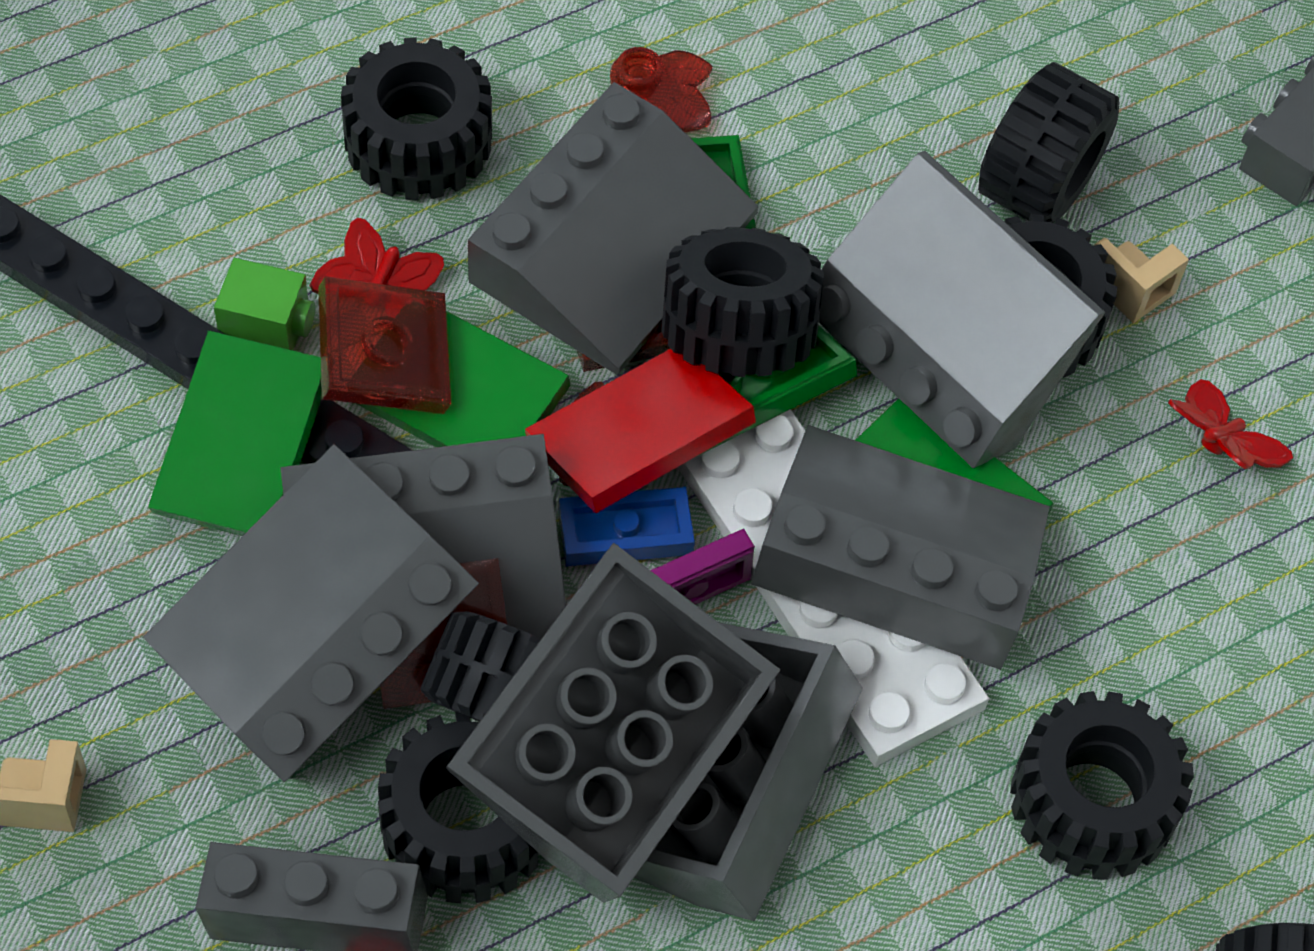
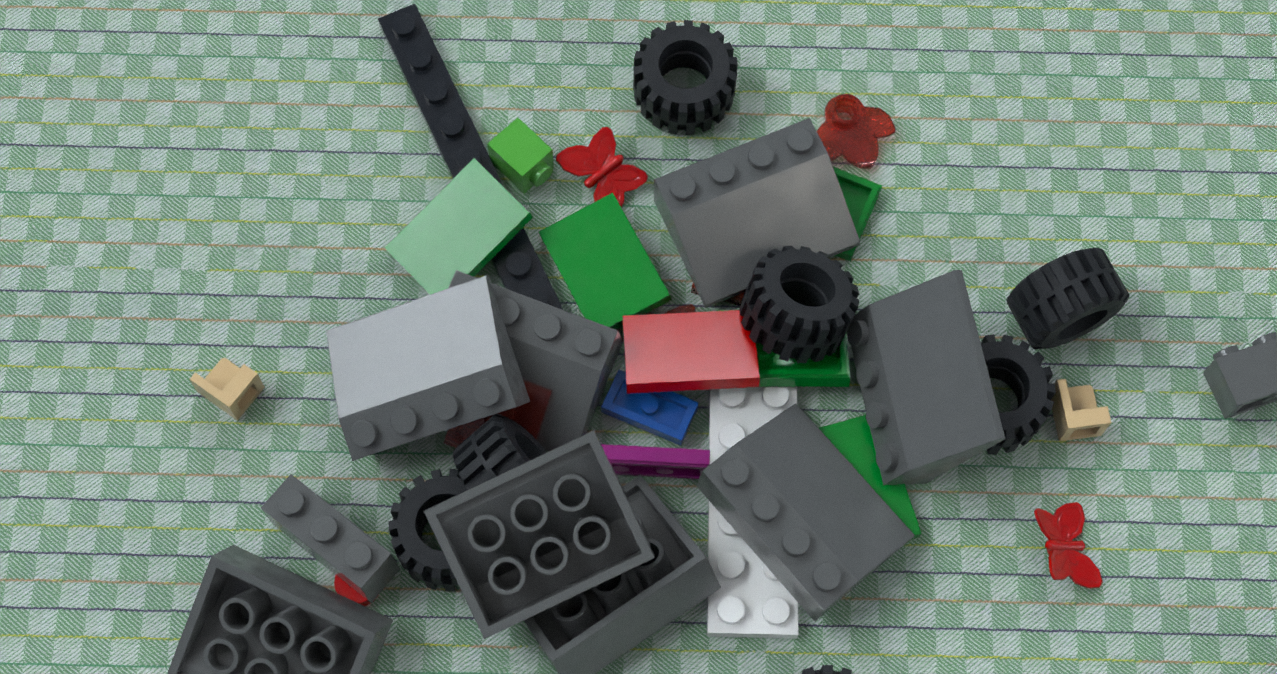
camera: 35 degrees right, 10 degrees up
(383, 345) = (569, 220): clear red tile -> none

